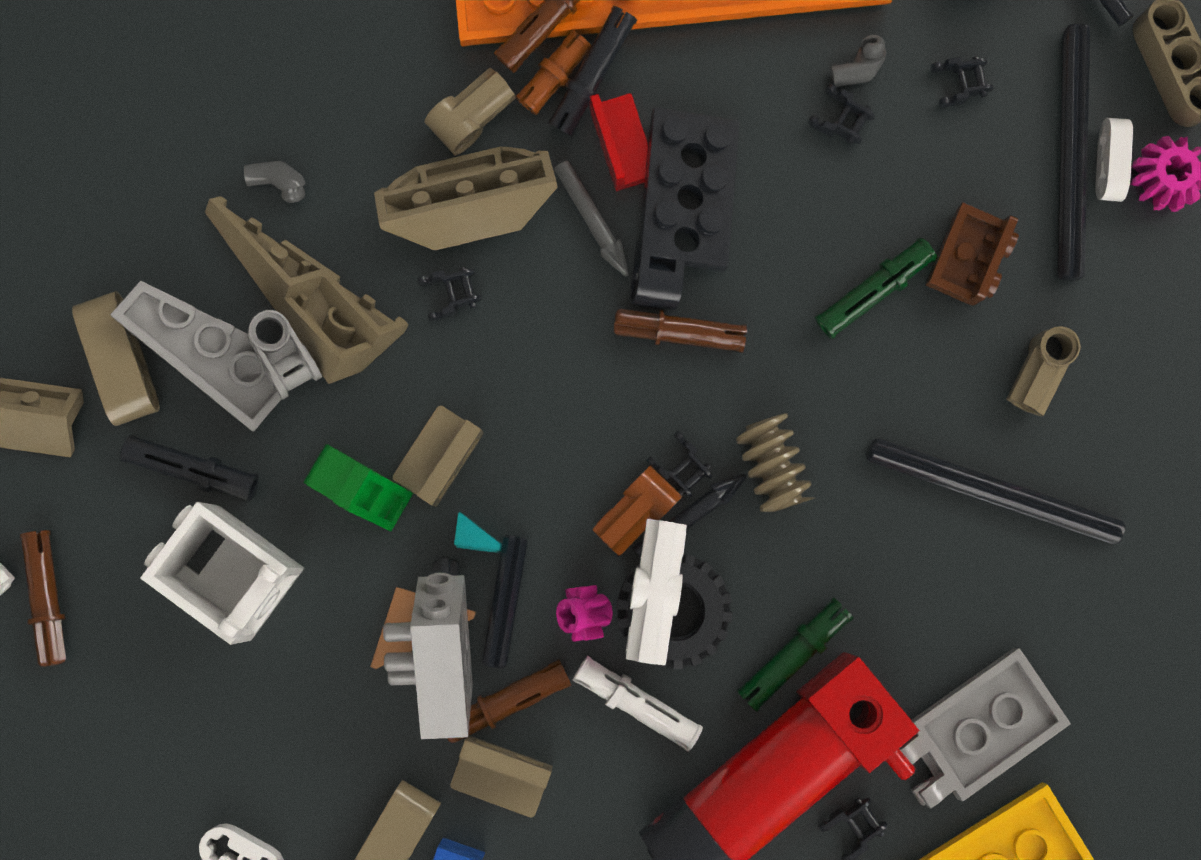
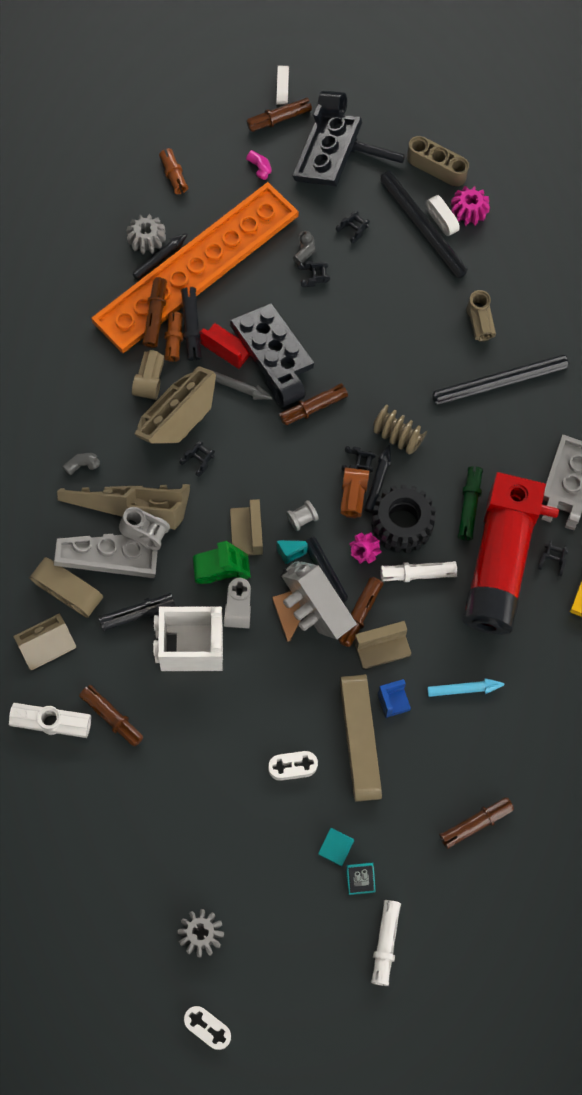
camera: 35 degrees left, 15 degrees down
(332, 569) = (238, 607): none -> light grey piece
(531, 494) = (302, 515): none -> light grey bush
(656, 592) = (390, 506): white piece -> none
(913, 258) = (390, 310): dark green pin -> none
(972, 255) = (414, 291): reddish brown bracket -> none

